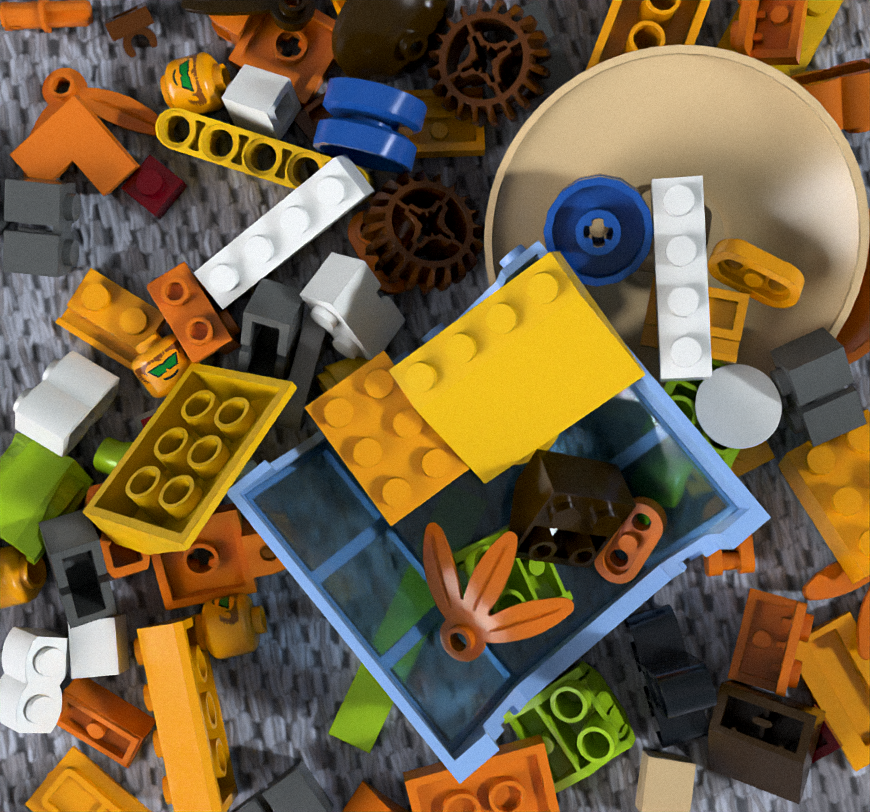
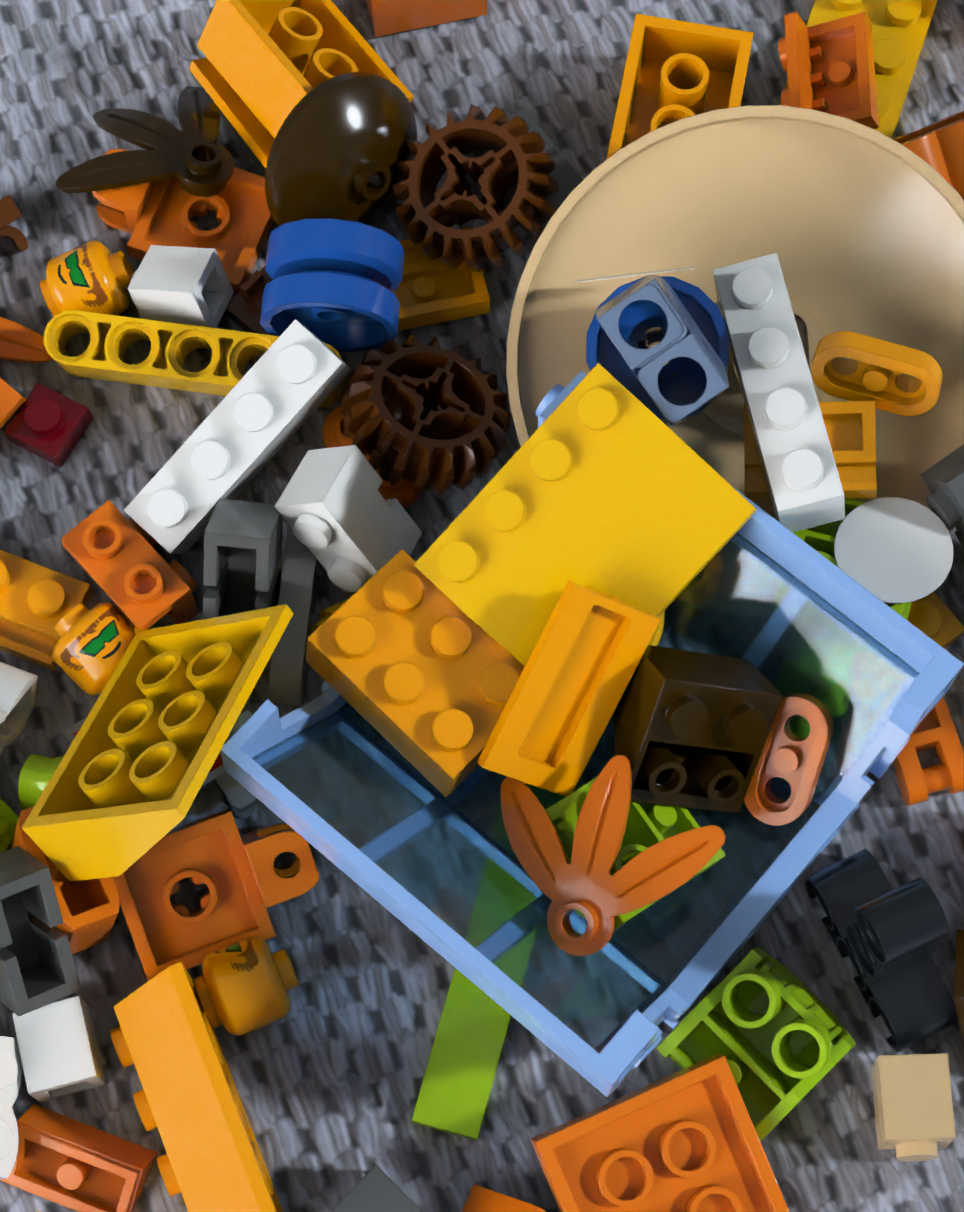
camera: 10 degrees left, 15 degrees down
(485, 477) = (568, 689): none -> light orange piece
(593, 169) = (635, 274): none -> white sticker
(605, 201) = (672, 345): none -> sand blue piece

